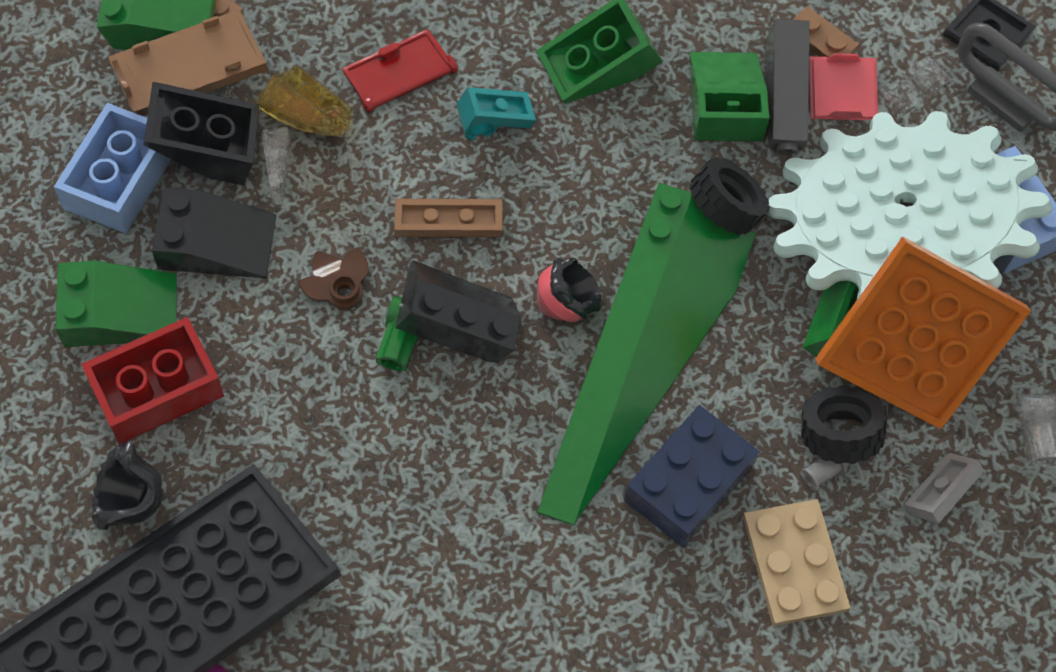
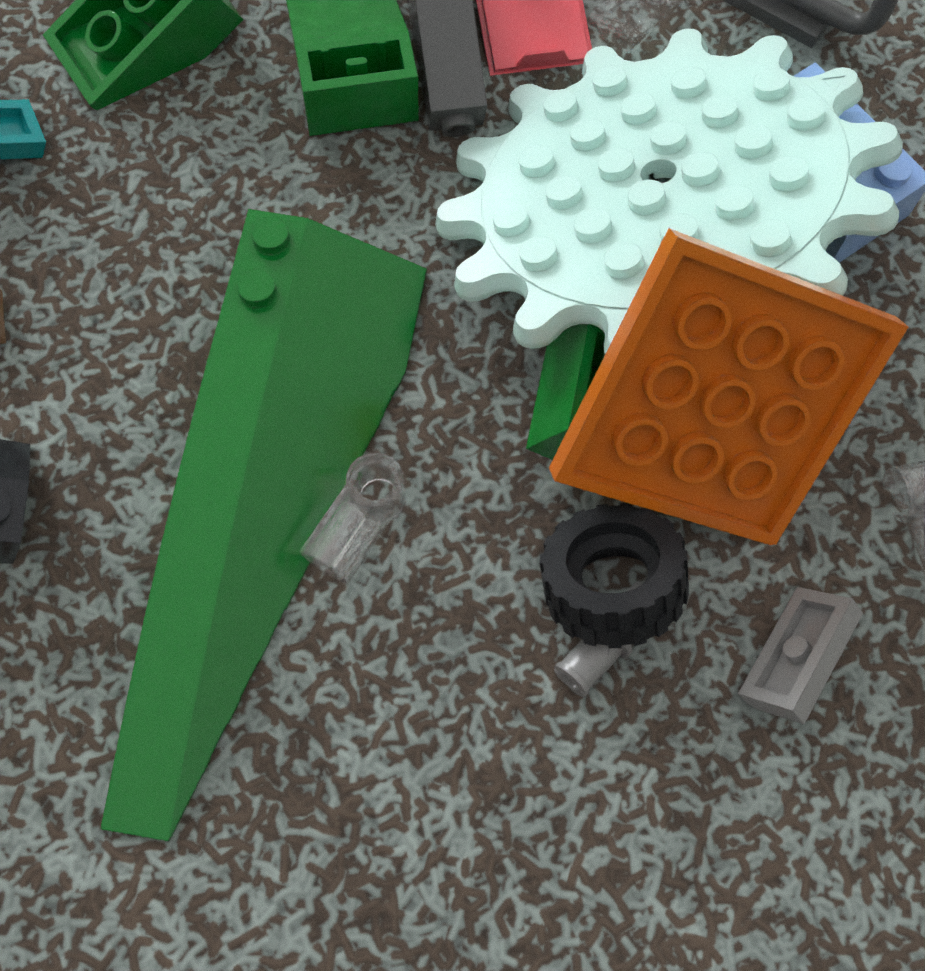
camera: 10 degrees left, 5 degrees up
(567, 291) = (116, 418): black hair -> none
(691, 475) = (362, 715): dark blue brick -> none
(697, 370) = (353, 521): none -> clear piece
(729, 196) = (369, 214): black tyre -> none
(796, 562) = (569, 840): tan plate -> none

